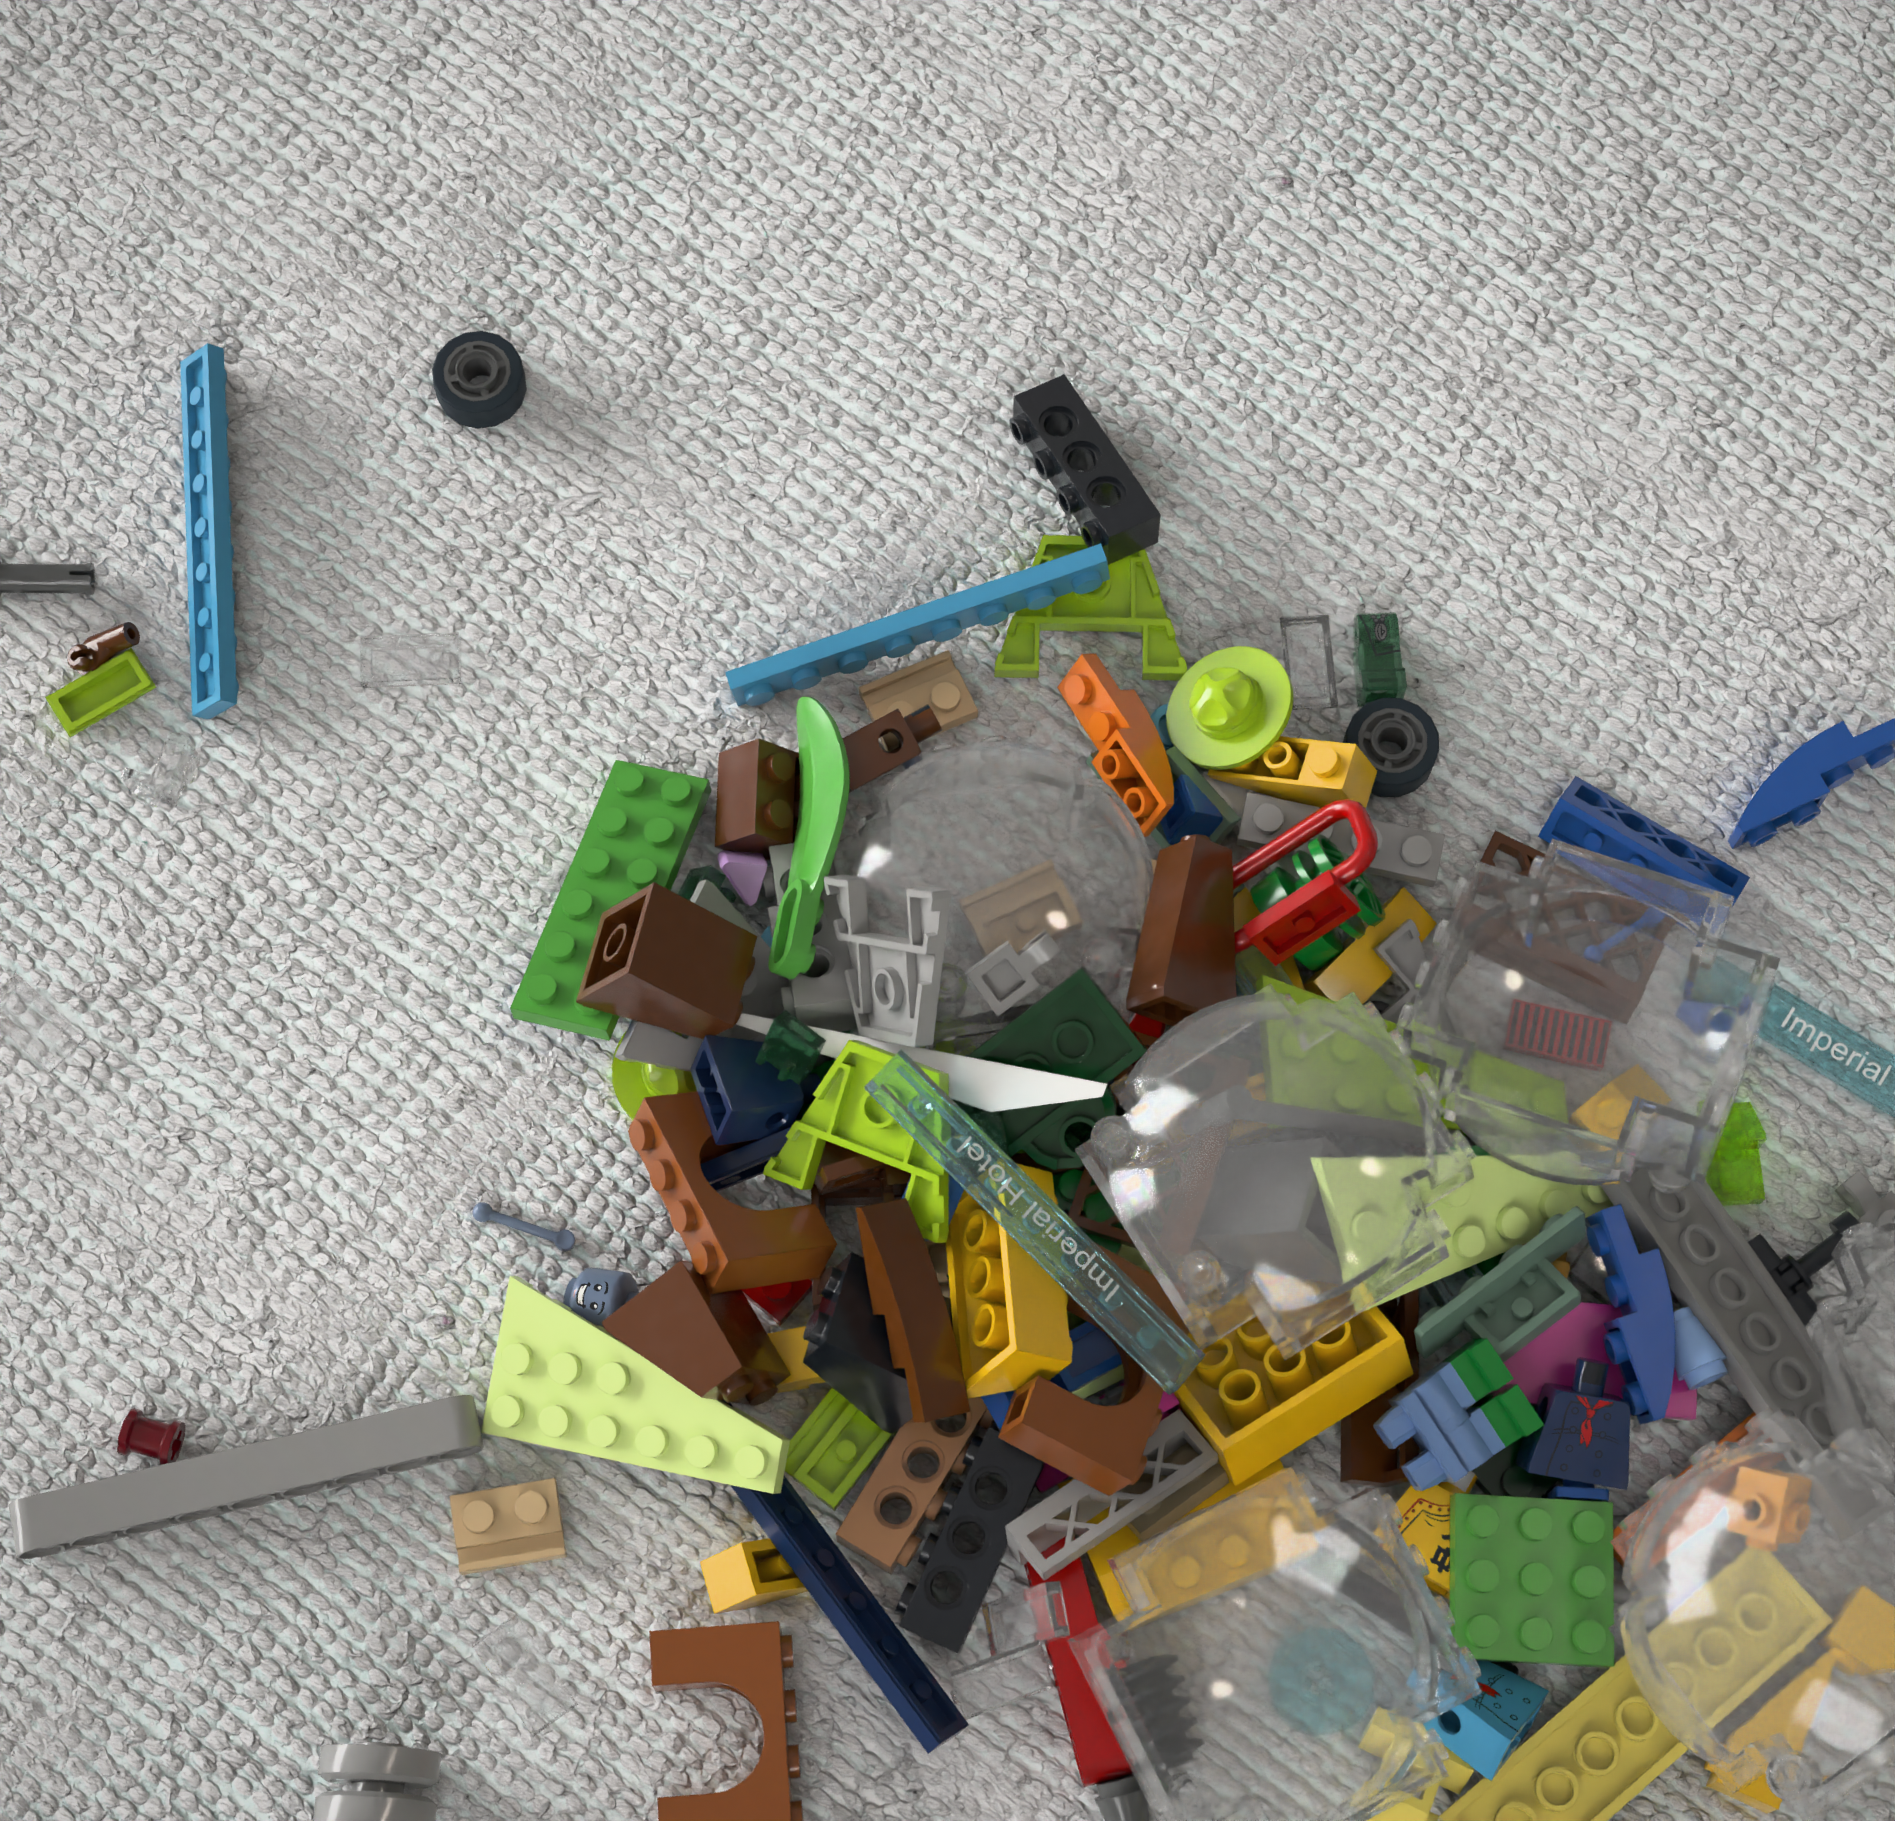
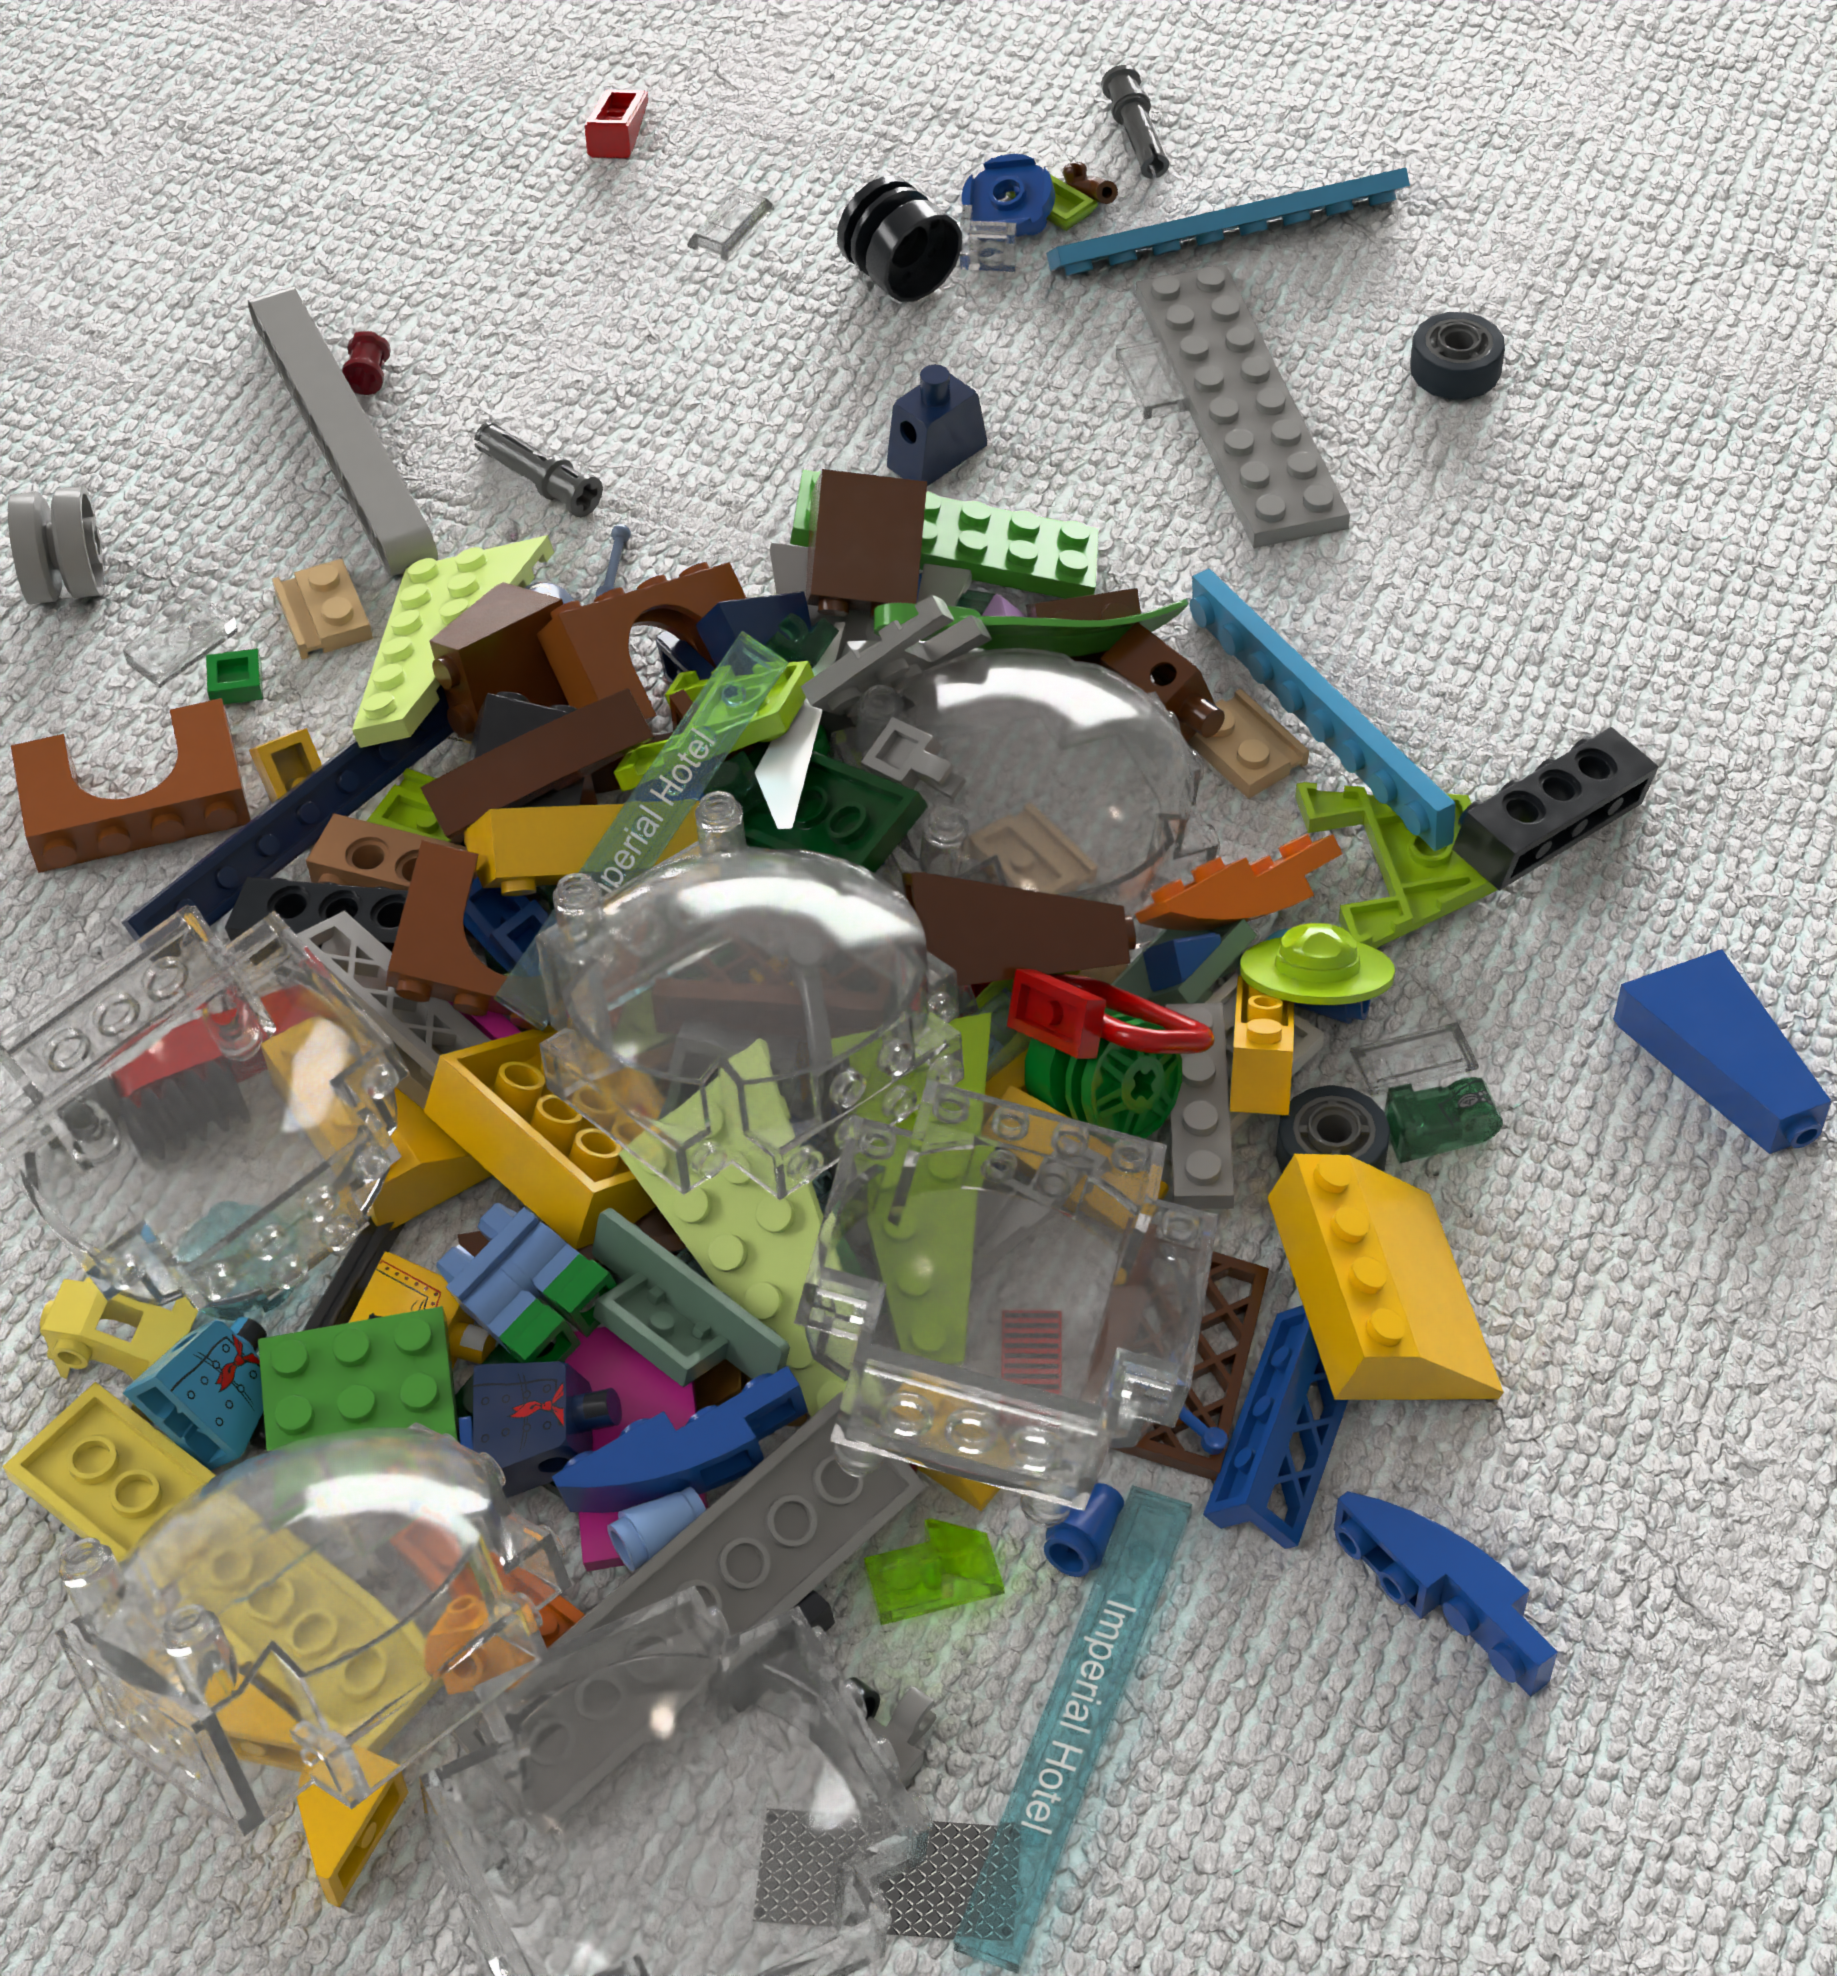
camera: 80 degrees right, 20 degrees down
(94, 705) = (1011, 173): none -> blue plate
(156, 850) = (899, 238): none -> black wheel
(389, 1265) = (551, 475): none -> dark grey pin
(446, 875) = (935, 427): none -> dark blue torso
(469, 590) = (1243, 407): none -> light grey plate
(593, 1623) = (235, 676): none -> green plate
(1356, 423) = (1725, 1048): none -> blue slope
(1552, 750) = (1379, 1284): none -> yellow slope

